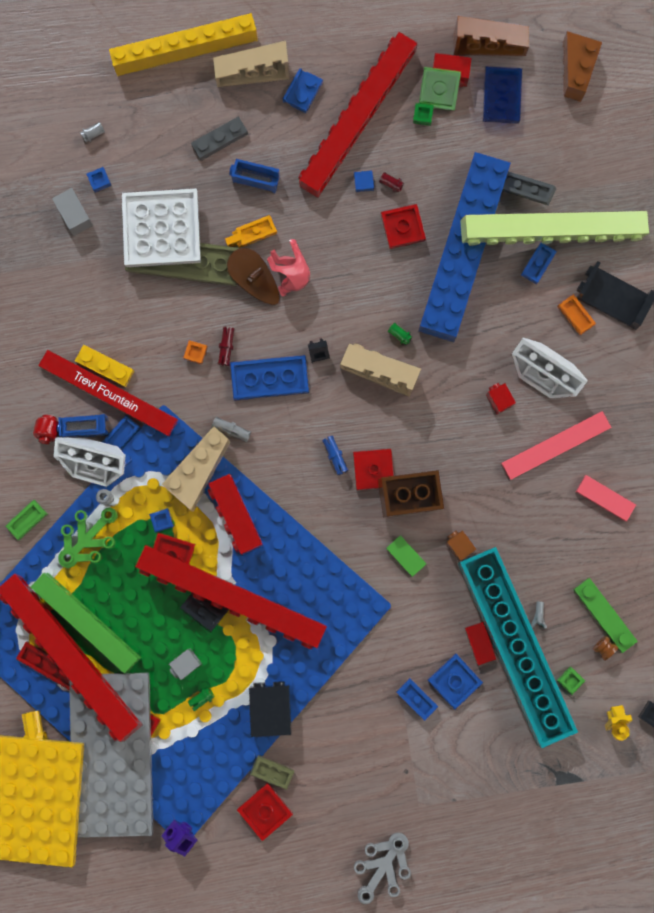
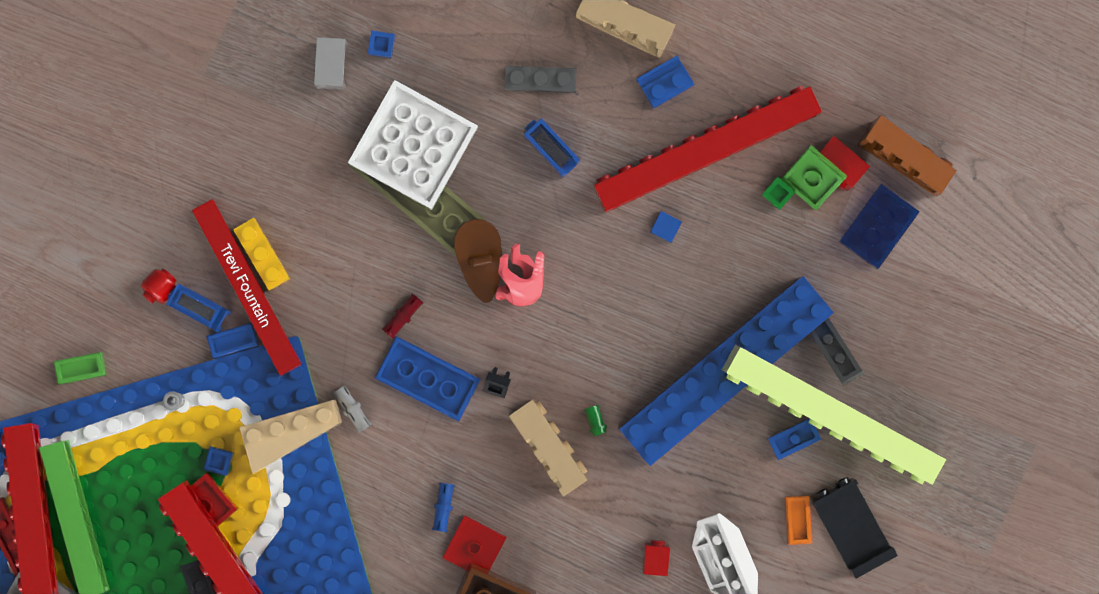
camera: 35 degrees right, 5 degrees up
(85, 539) = (127, 430): bright green plant -> none
(90, 459) = (184, 349): white wedge -> none
(195, 352) = (366, 302): orange plate -> none
(235, 514) = (298, 505): red brick -> none
(252, 232) = (508, 208): light orange hinge -> none
(391, 182) = (694, 248): dark red pin -> none
(403, 226) = (675, 305): red plate -> none
(578, 62) = (986, 245): dark orange wedge -> none

